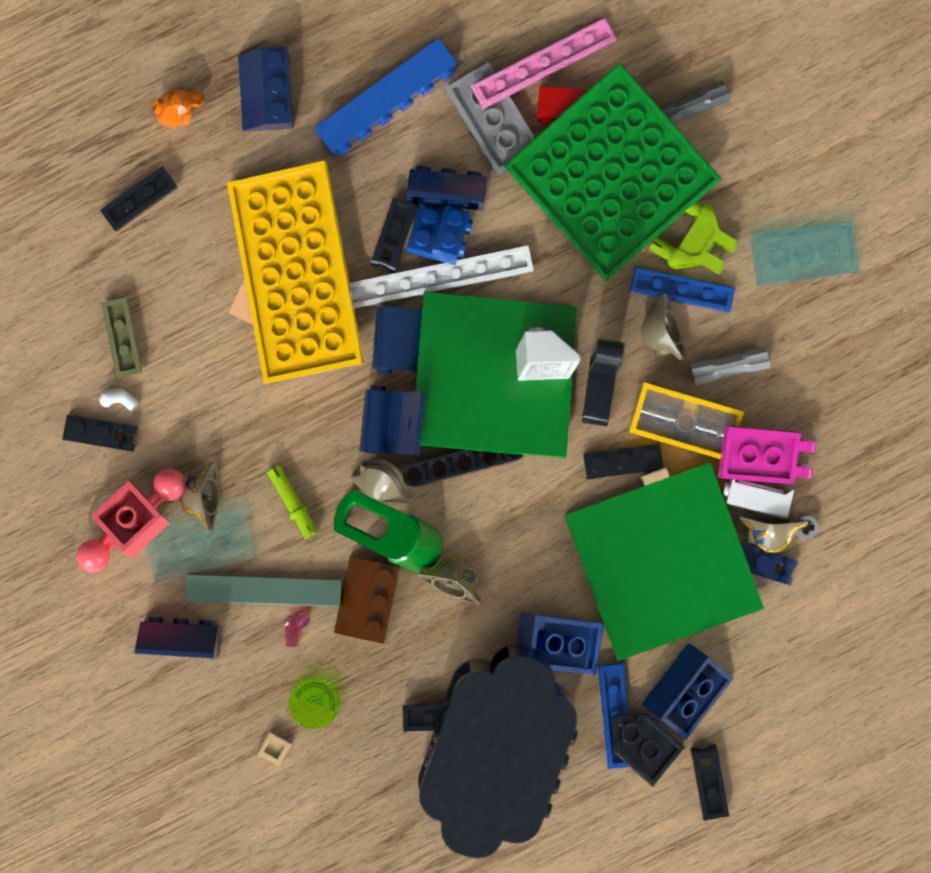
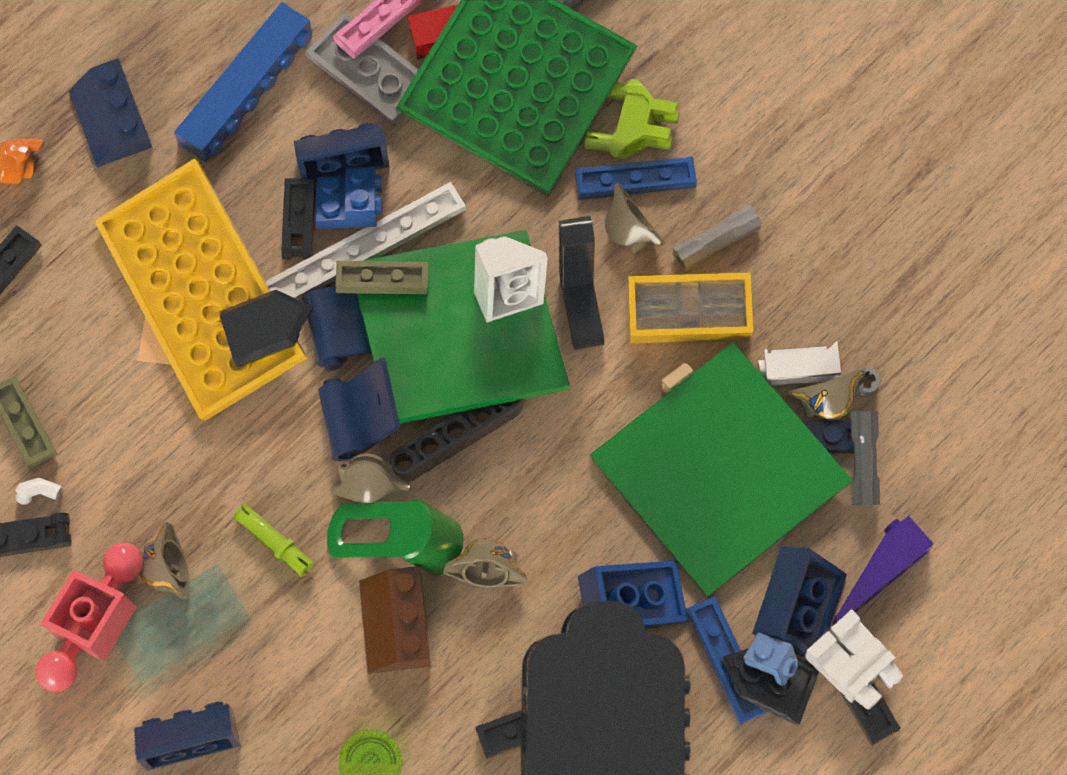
camera: 15 degrees left, 15 degrees down
(263, 591) = (269, 651): sand green tile -> none
(293, 626) = (319, 679): clear pink arm -> none
(336, 326) = (263, 326): none -> black tile
(444, 316) = (382, 277): none -> olive plate
(623, 461) = (634, 377): black plate -> none
(649, 731) = (772, 657): none -> medium blue bracket
(712, 763) = (854, 660): none -> white hips
(763, 455) = (789, 313): dark pink tile -> none
(774, 678) = (896, 553): none -> dark purple slope
(786, 576) = (865, 480): none -> dark grey axle
(804, 253) = (755, 100): clear light blue tile -> none

